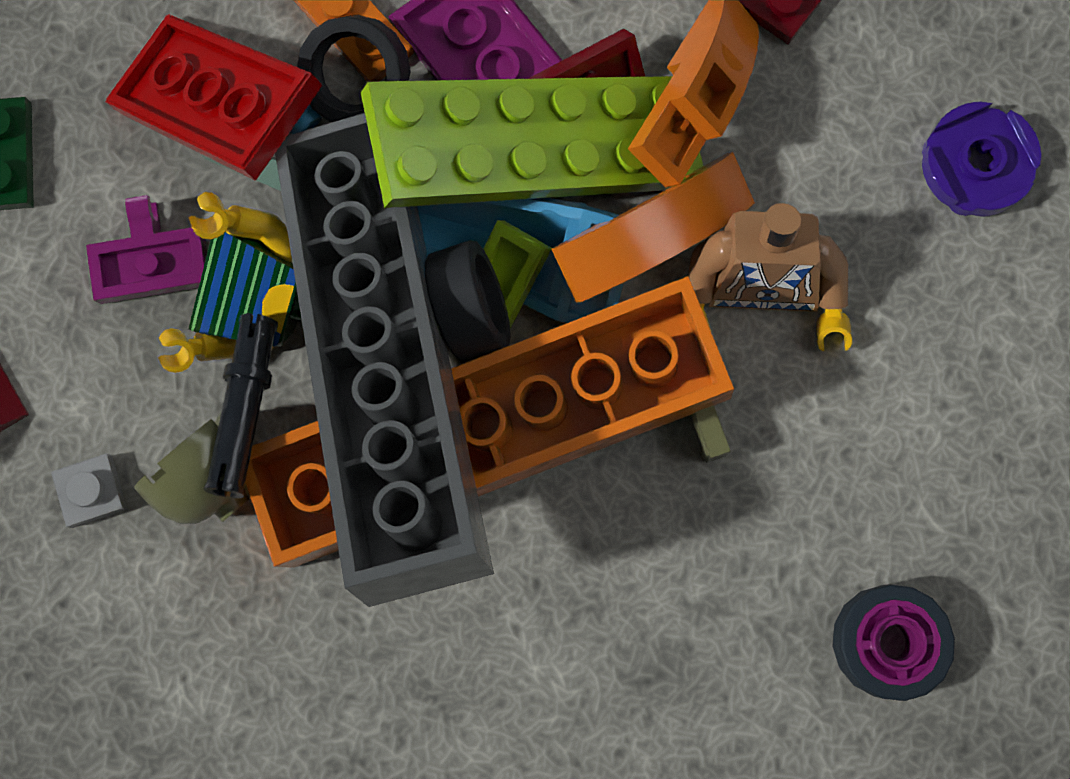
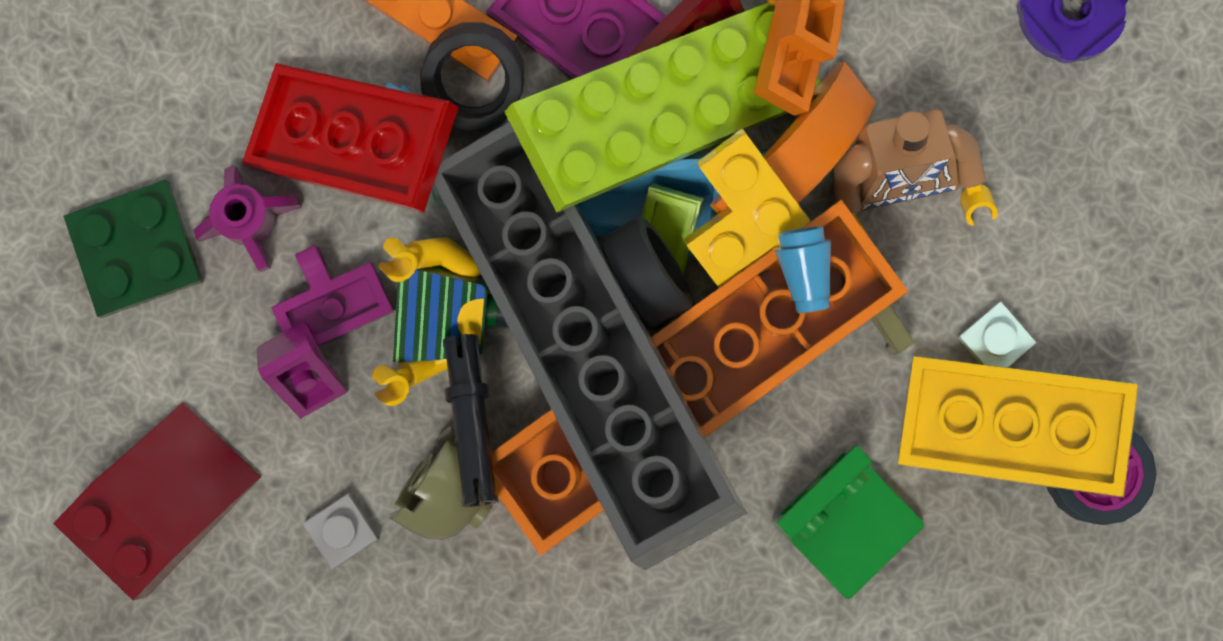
camera: 20 degrees left, 5 degrees up
(89, 150) = (255, 224): none -> magenta brick
(91, 317) = (298, 371): none -> magenta slope
(599, 264) = (756, 210): none -> yellow plate
(612, 623) = (848, 522): none -> green bracket
(631, 332) = (806, 267): none -> dark azure cone
(818, 474) = (996, 338): none -> light aqua plate
(820, 568) = (1019, 425): none -> yellow plate

